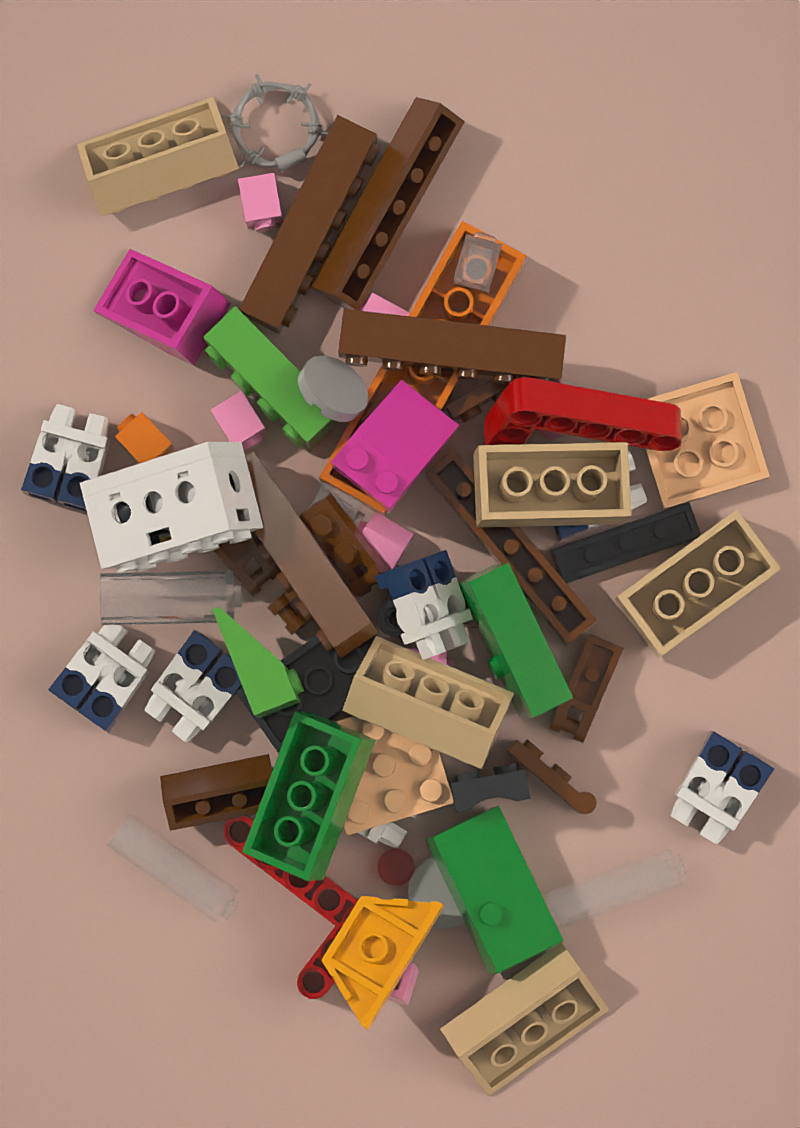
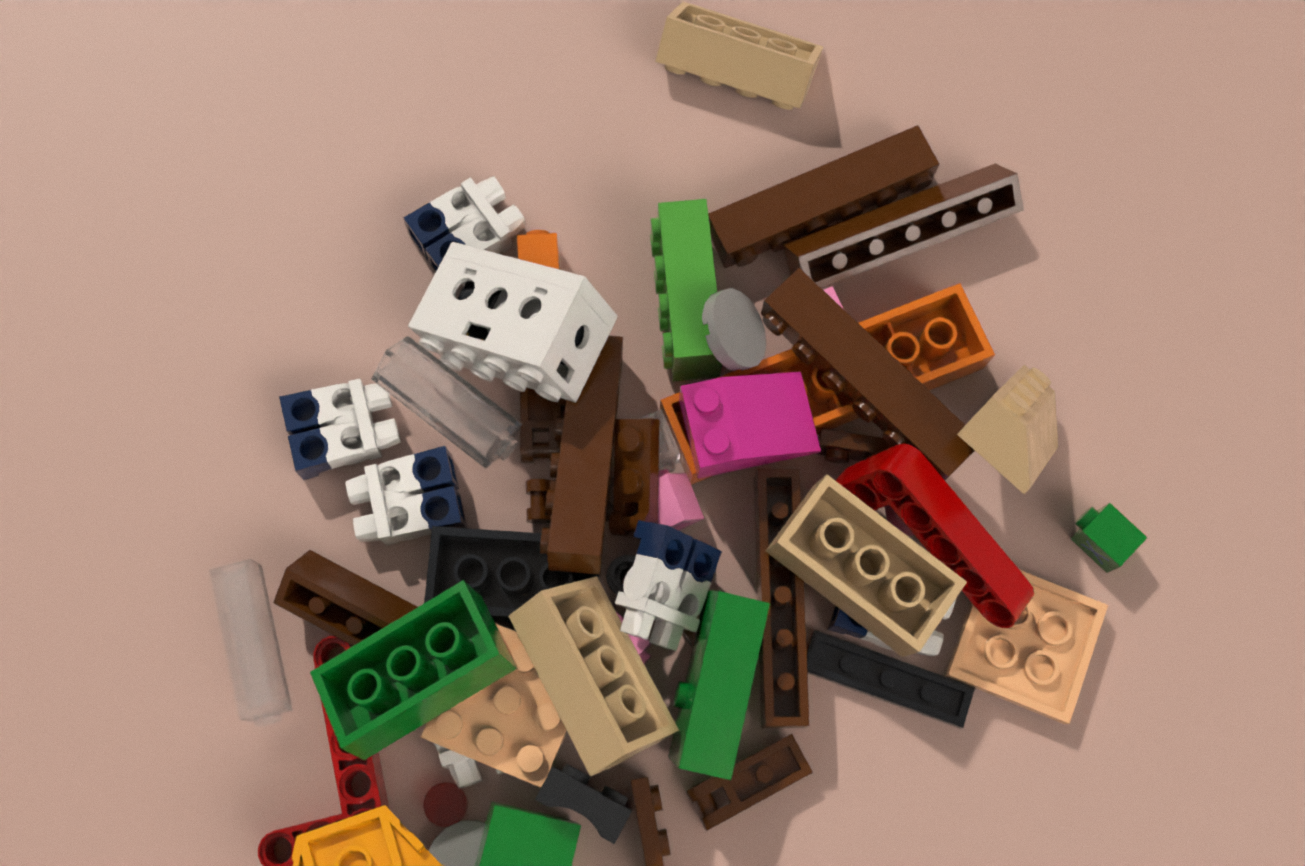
camera: 30 degrees right, 10 degrees down
(162, 306) = (645, 167): dark pink slope -> none
(239, 421) = (633, 305): bright pink brick -> none
(260, 202) = (796, 147): bright pink brick -> none
(262, 675) = (462, 523): bright green slope -> none
(287, 160) = (849, 136): light grey piece -> none
(478, 262) = (948, 323): clear brick -> none
(582, 301) = (1017, 428): none -> tan slope
(697, 583) = (929, 768): tan brick -> none
(701, 322) = (1107, 536): none -> green brick

